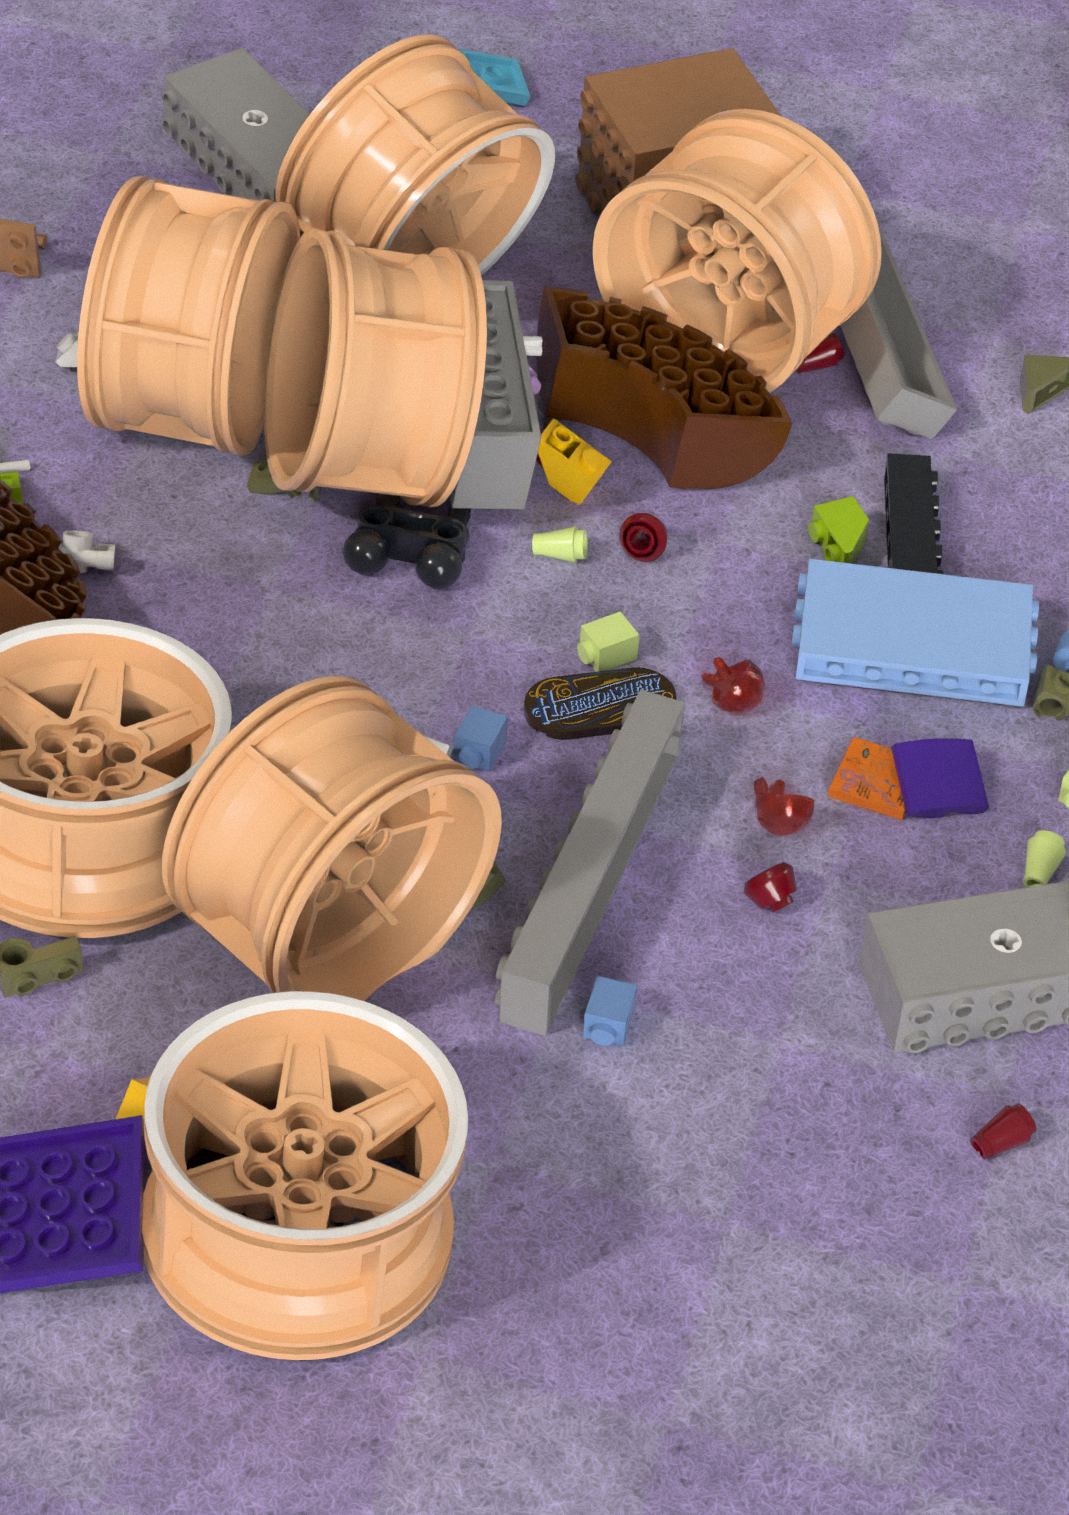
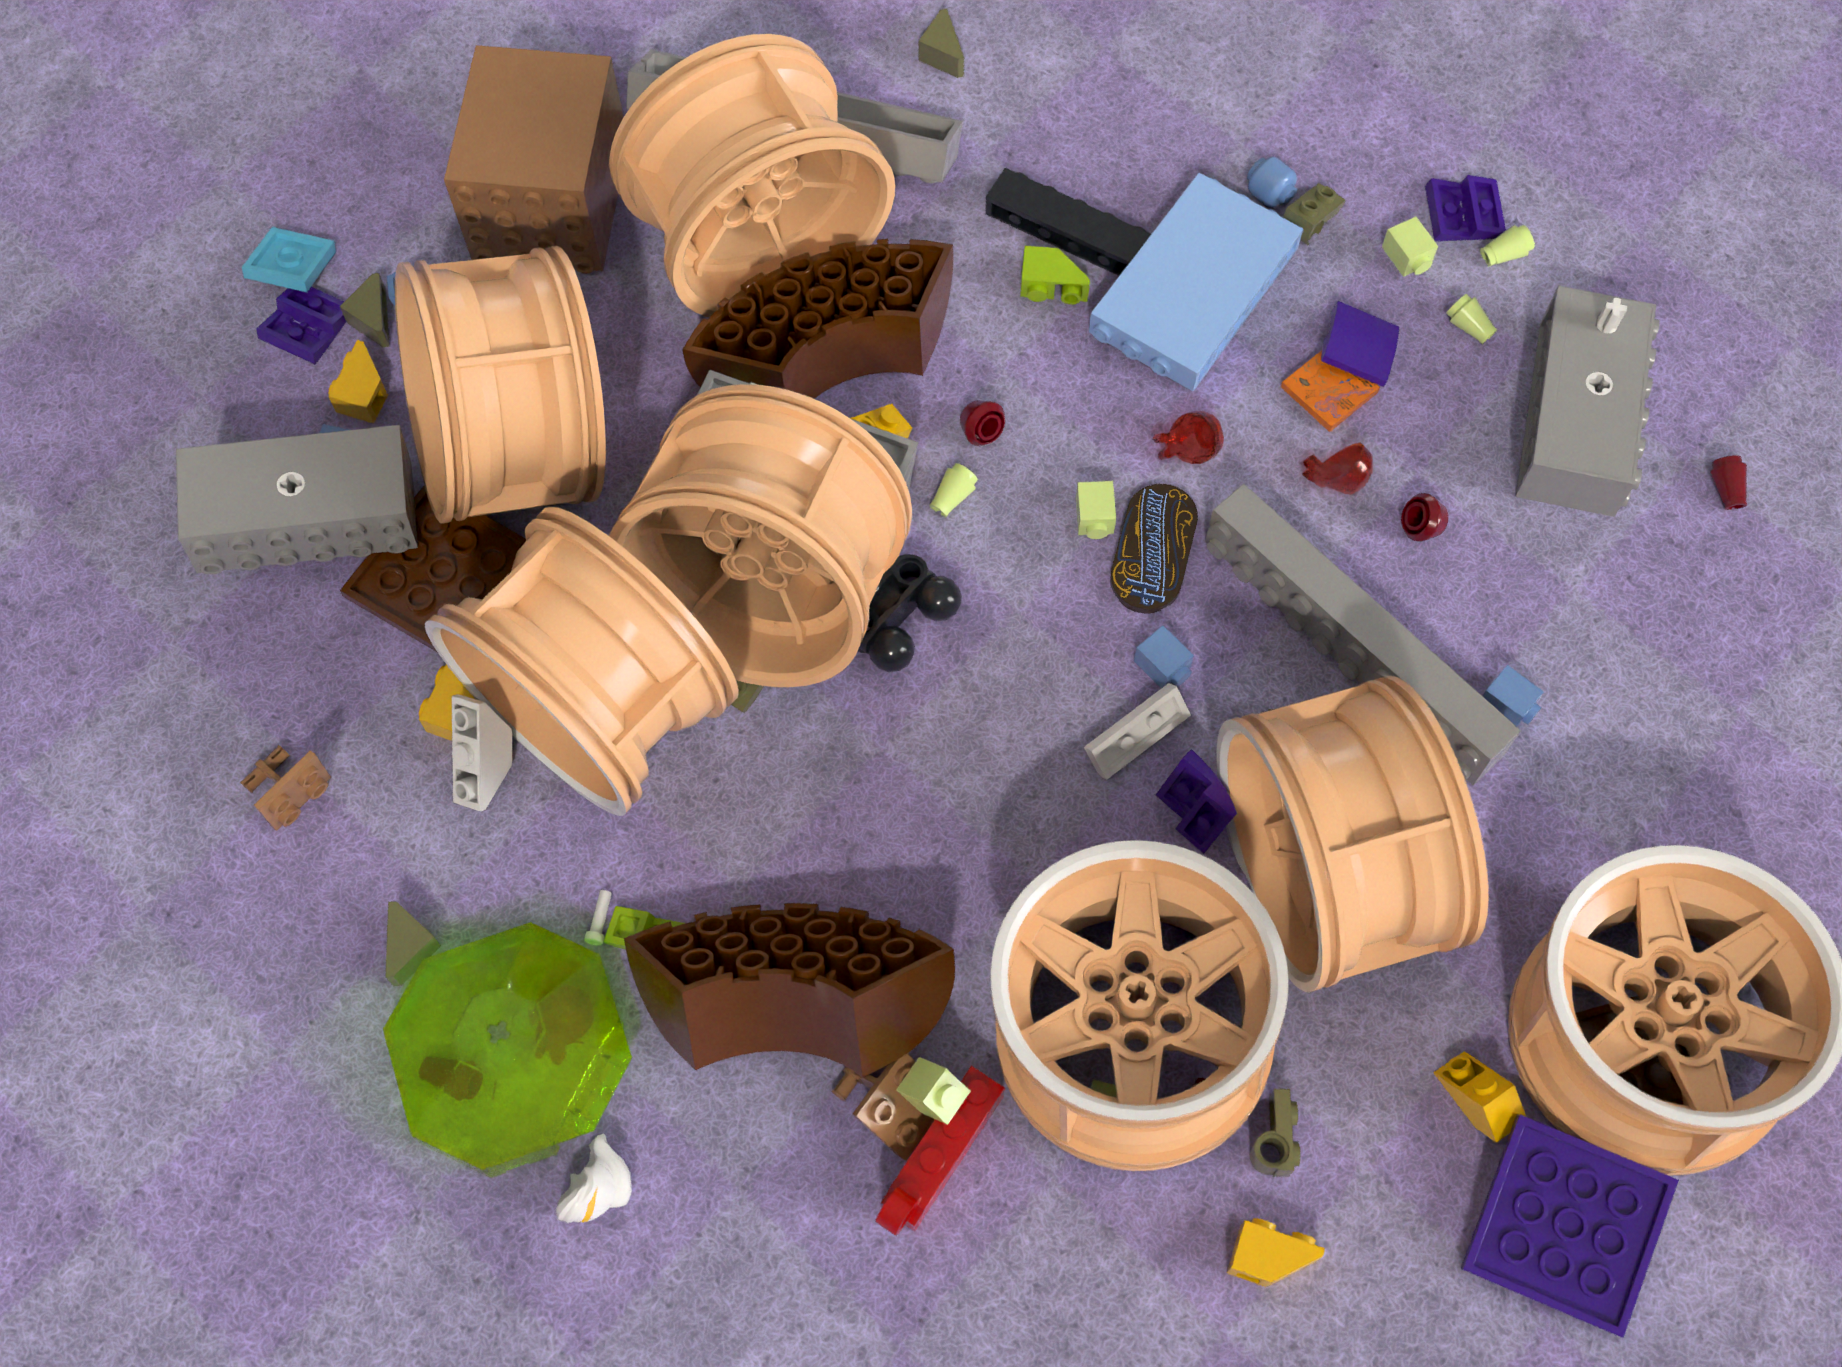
camera: 60 degrees left, 20 degrees up
(86, 554) = (771, 884): white plate -> none

